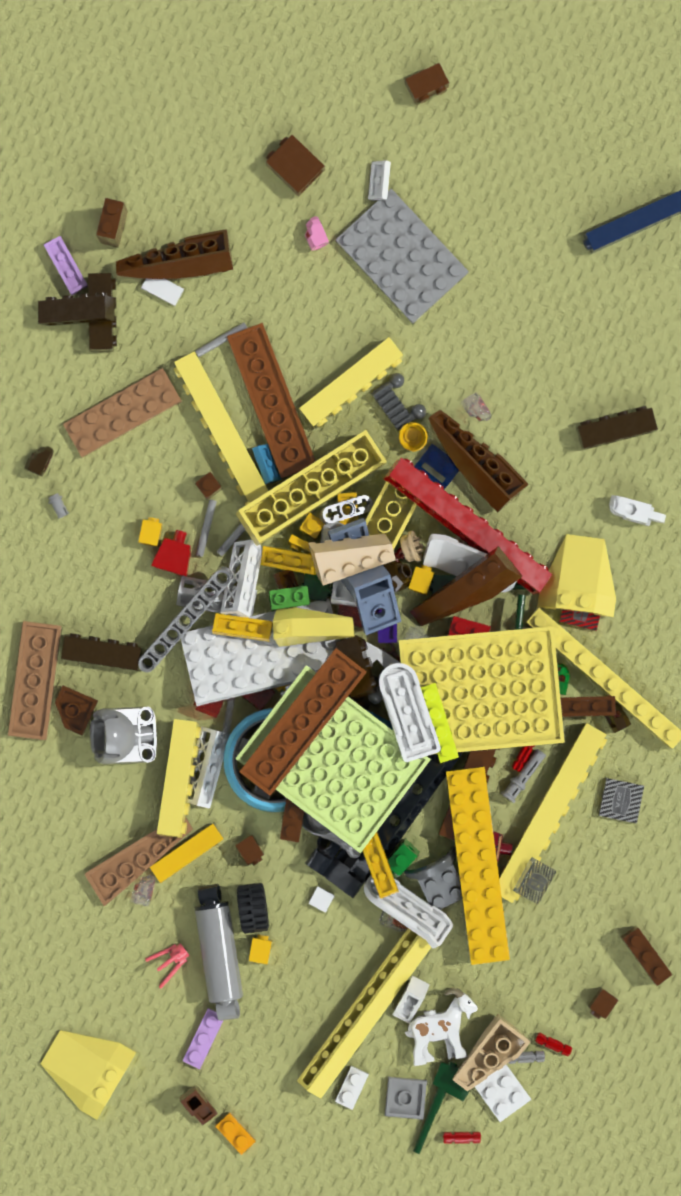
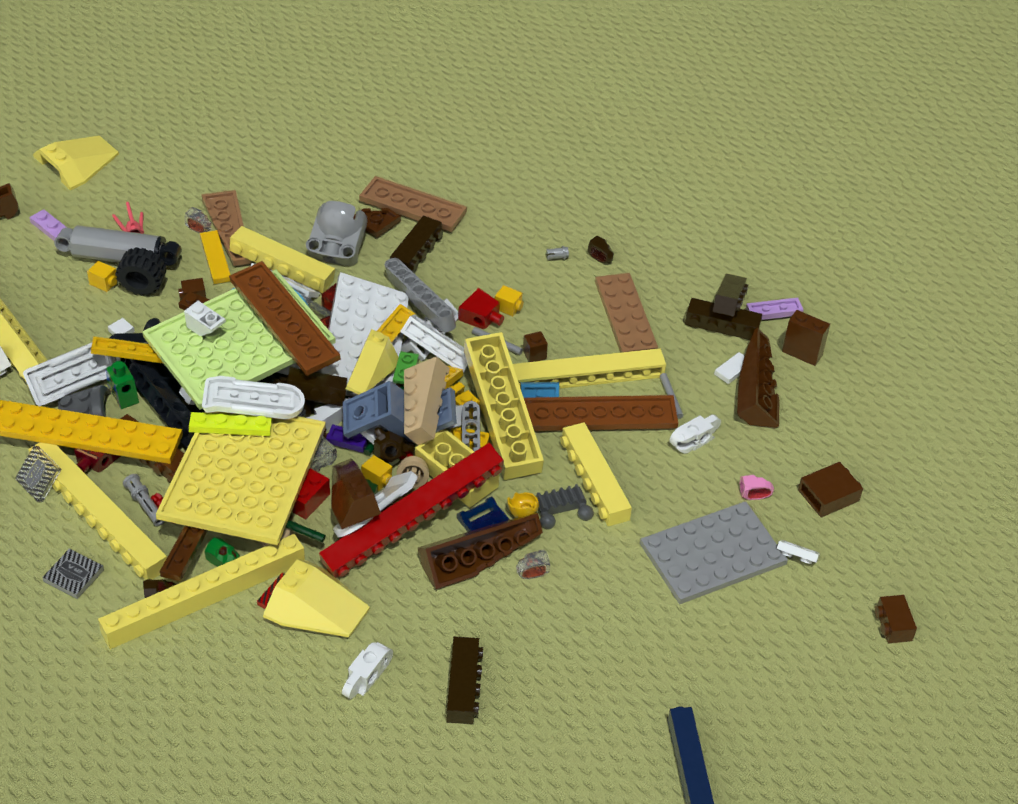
camera: 105 degrees right, 40 degrees down
(269, 303) = (695, 433): none -> white piece
(339, 791) = (202, 319): none -> white slope

